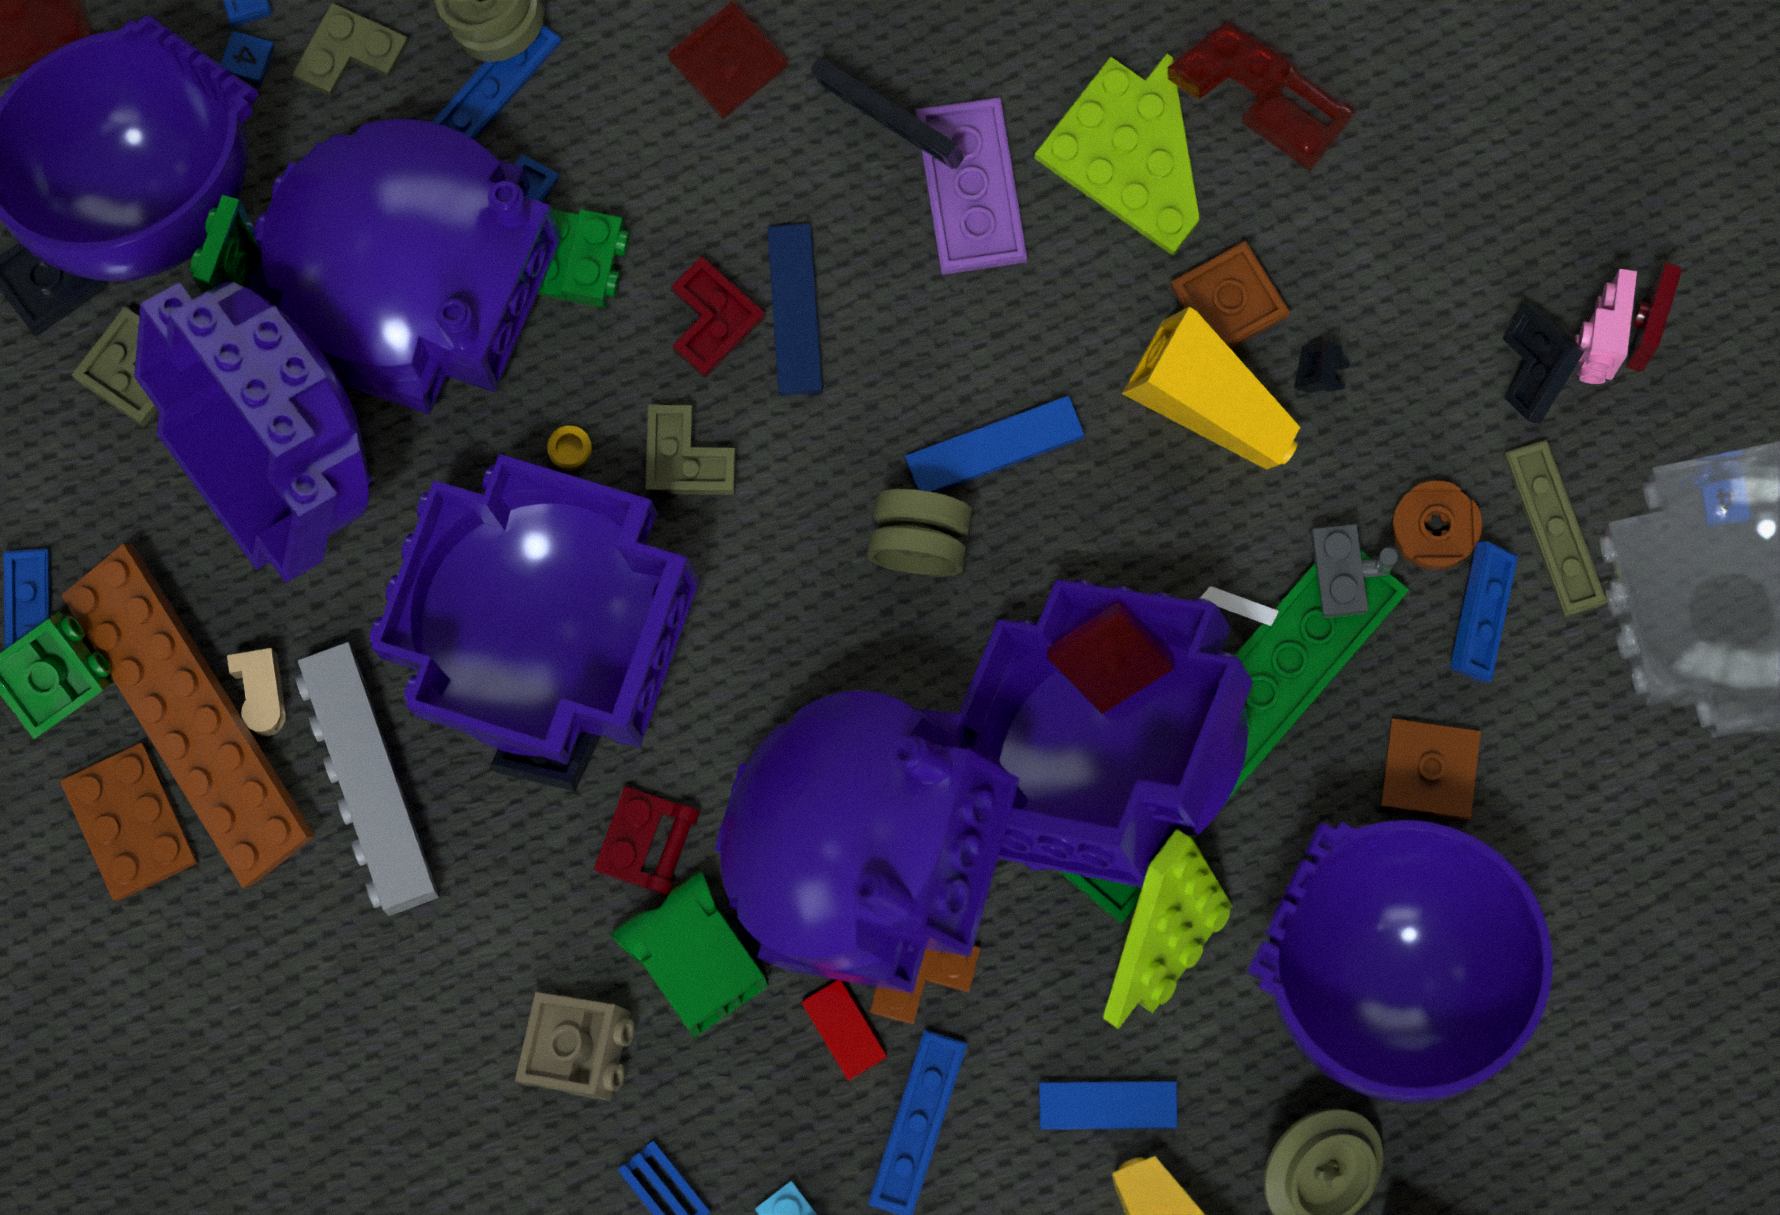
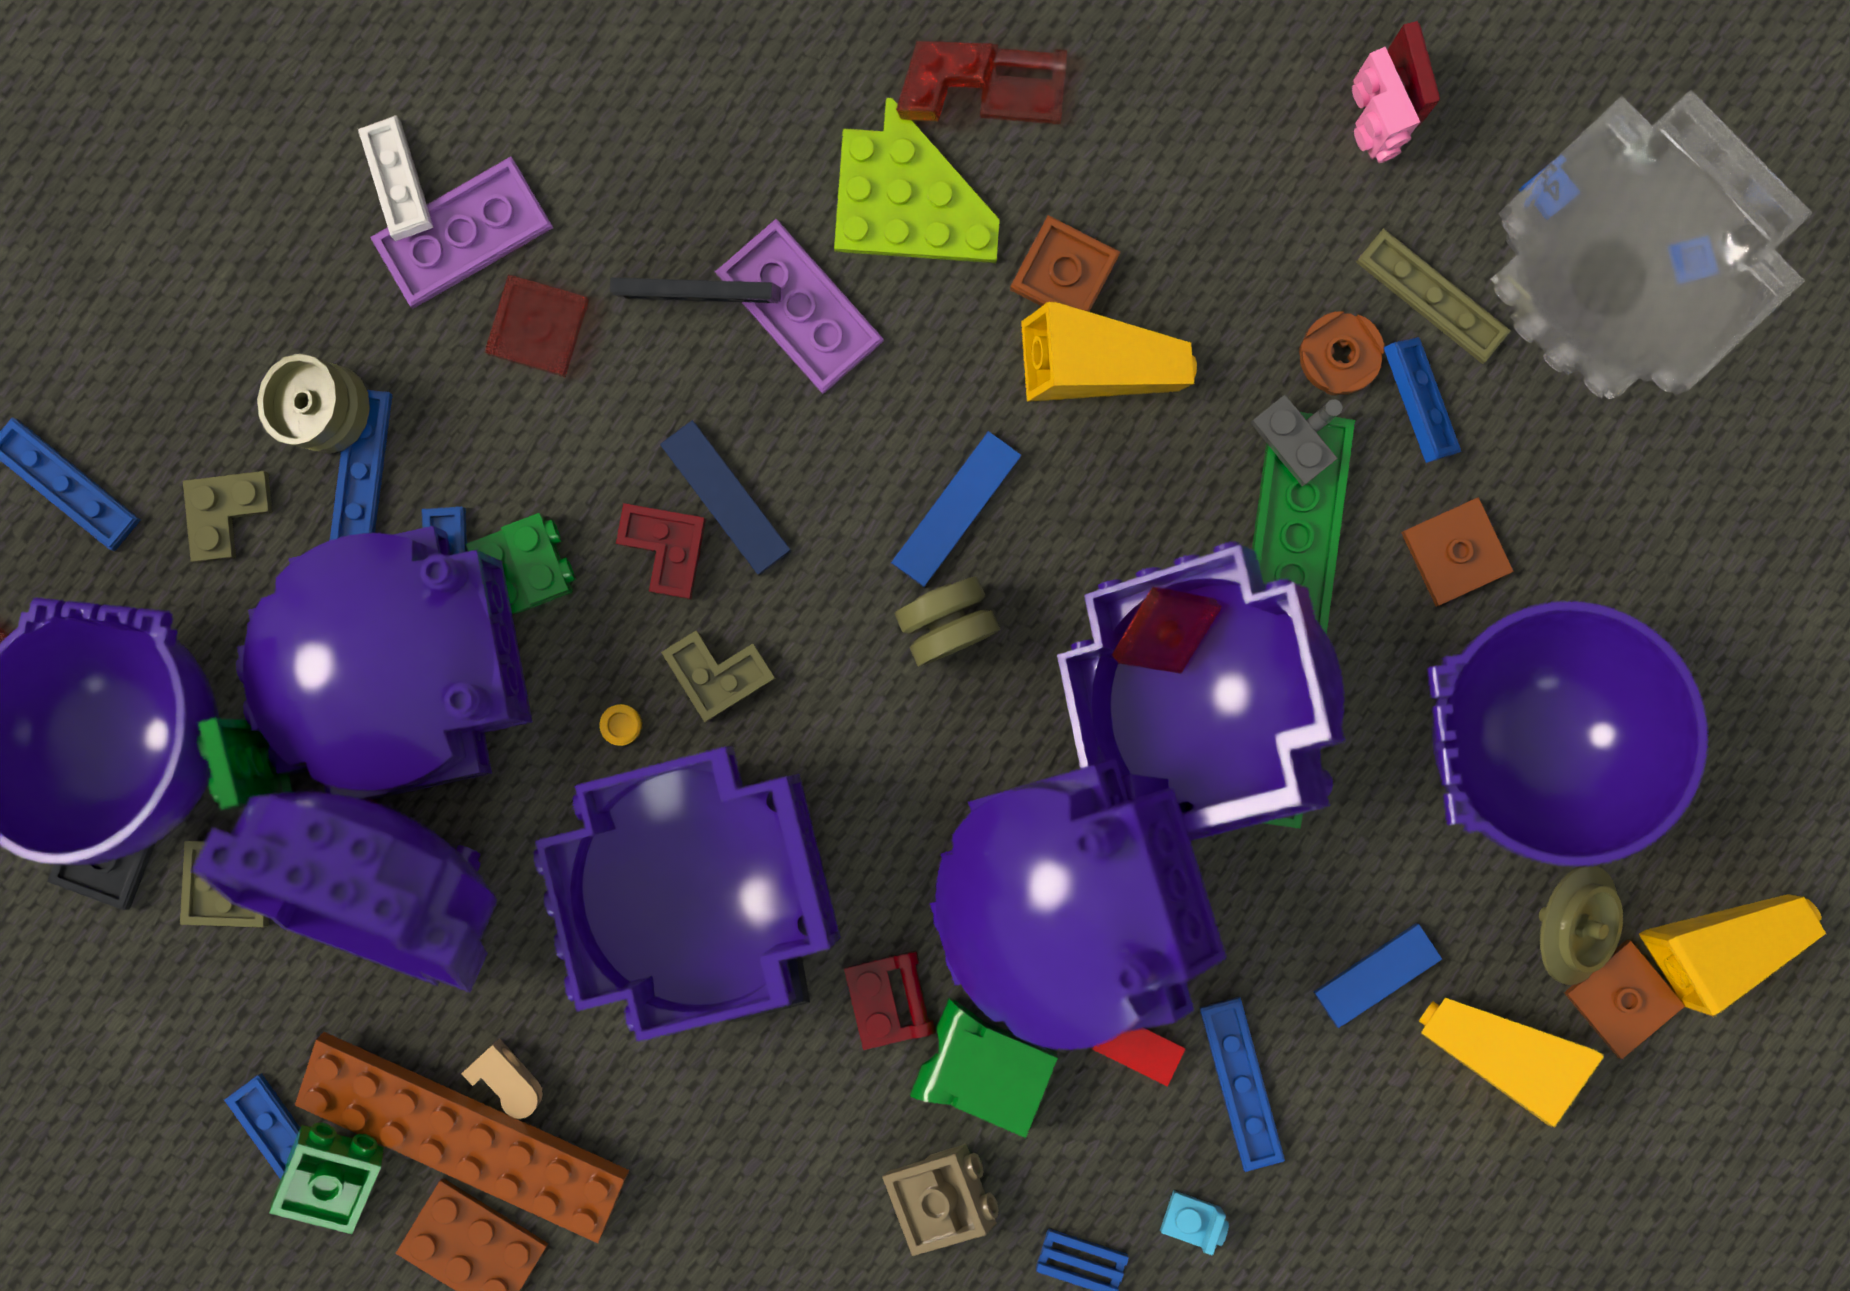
camera: 30 degrees left, 10 degrees up
(248, 57) = (144, 570): blue tile -> none
(367, 779) = (638, 1096): light grey brick -> none
(1170, 925) = (1349, 819): lime wing -> none
(1240, 605) = (1230, 515): white sticker -> none
(1319, 368) = (1171, 282): black tile -> none
(1549, 361) = (1351, 162): black plate -> none

